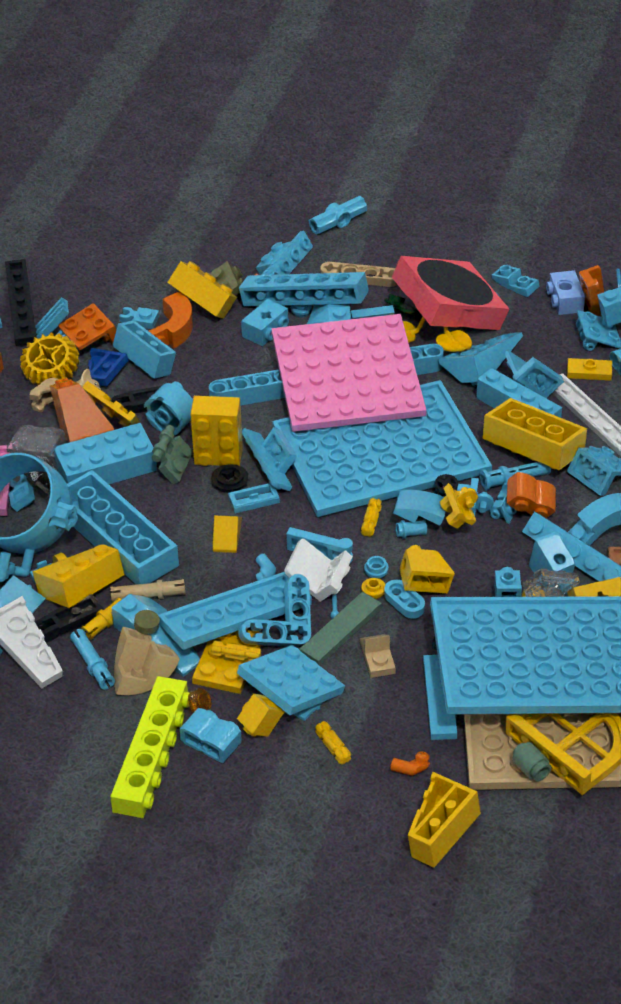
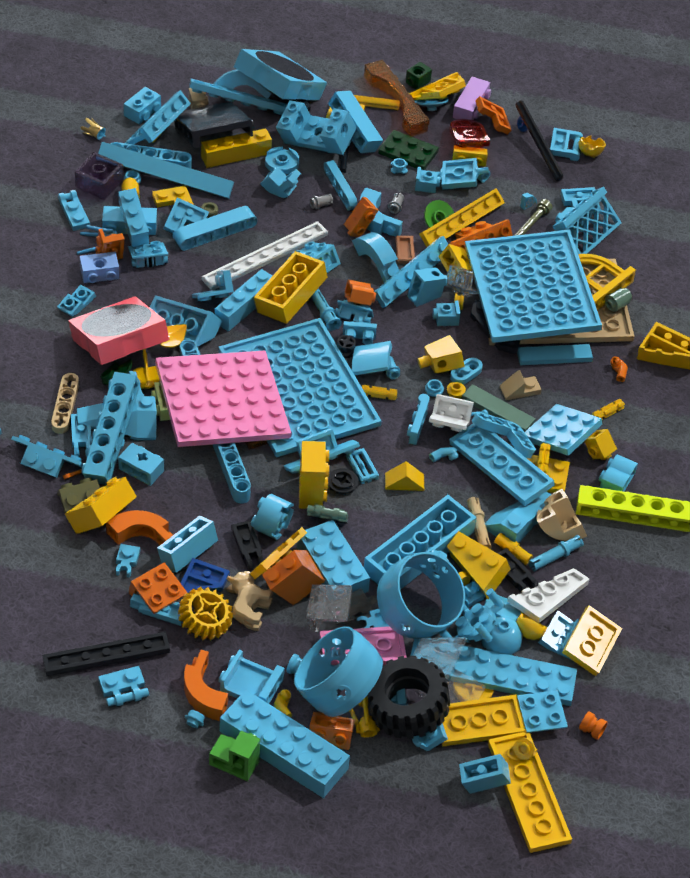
camera: 100 degrees left, 5 degrees up
(52, 318) = (143, 599): medium azure tile -> none
(146, 622) = (531, 508): olive tile -> none
(199, 699) = (589, 482): clear orange tile -> none
(460, 503) = (388, 328): yellow hips -> none
(589, 369) = (193, 261): yellow plate -> none

